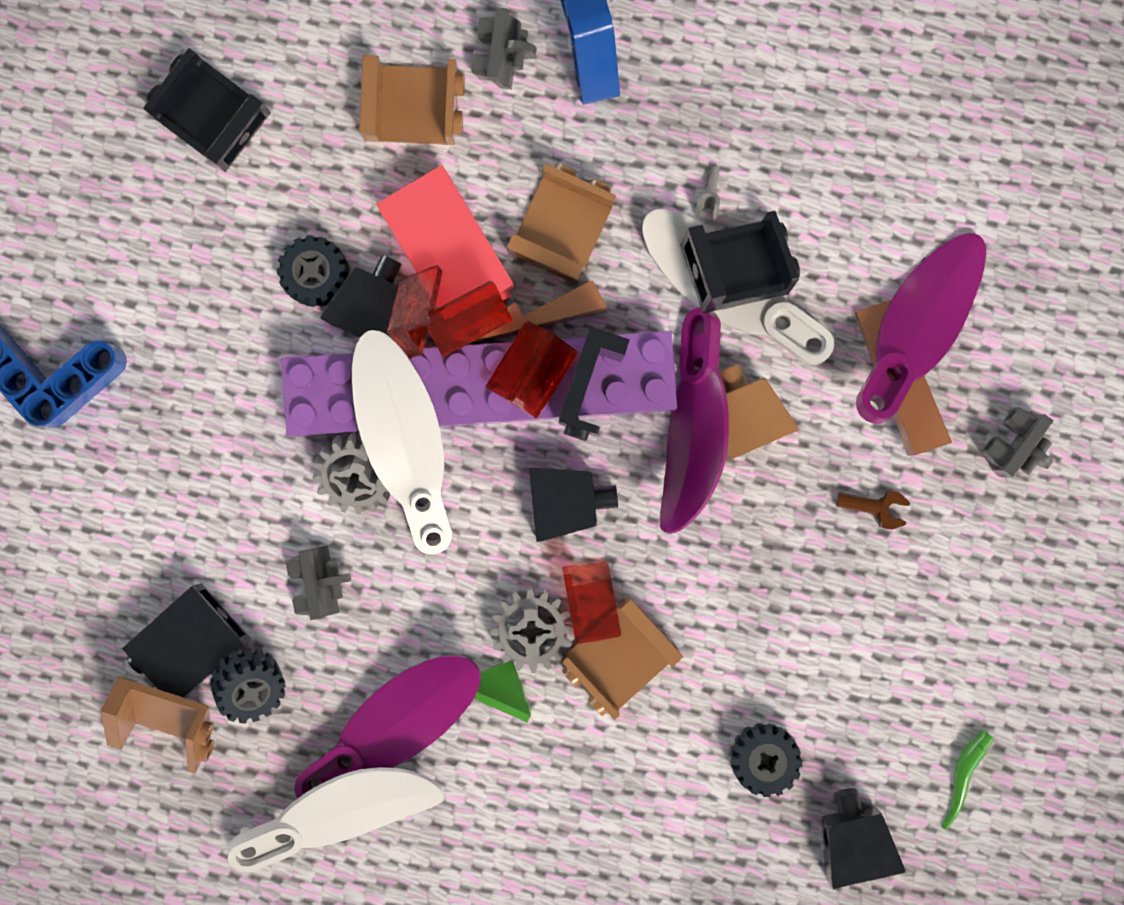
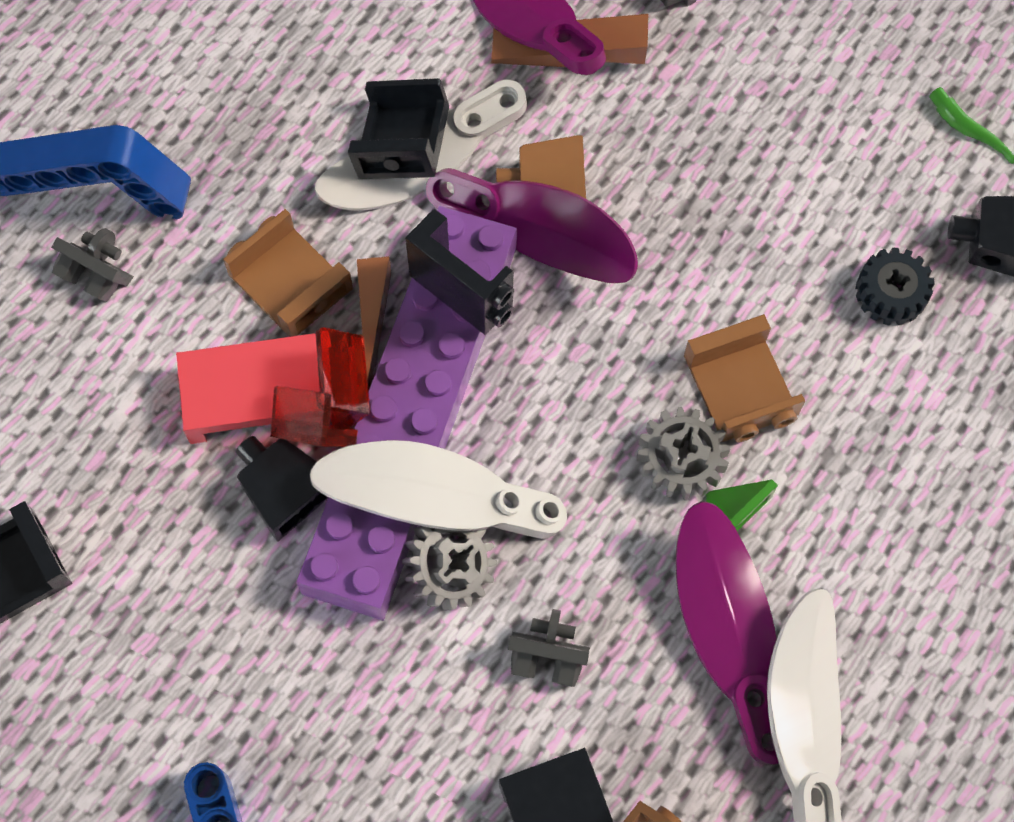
camera: 70 degrees left, 20 degrees down
(242, 700) = (632, 763): black wheel -> none
(303, 262) = (212, 514): black wheel -> none
(410, 103) = (100, 367): medium nougat panel -> none
(532, 368) = (418, 333): clear red panel -> none
(567, 501) = (563, 372): black torso -> none
(591, 602) = (675, 386): clear red panel -> none
(709, 198) = (327, 140): light grey hand -> none
(876, 507) = (684, 106): reddish brown bar -> none

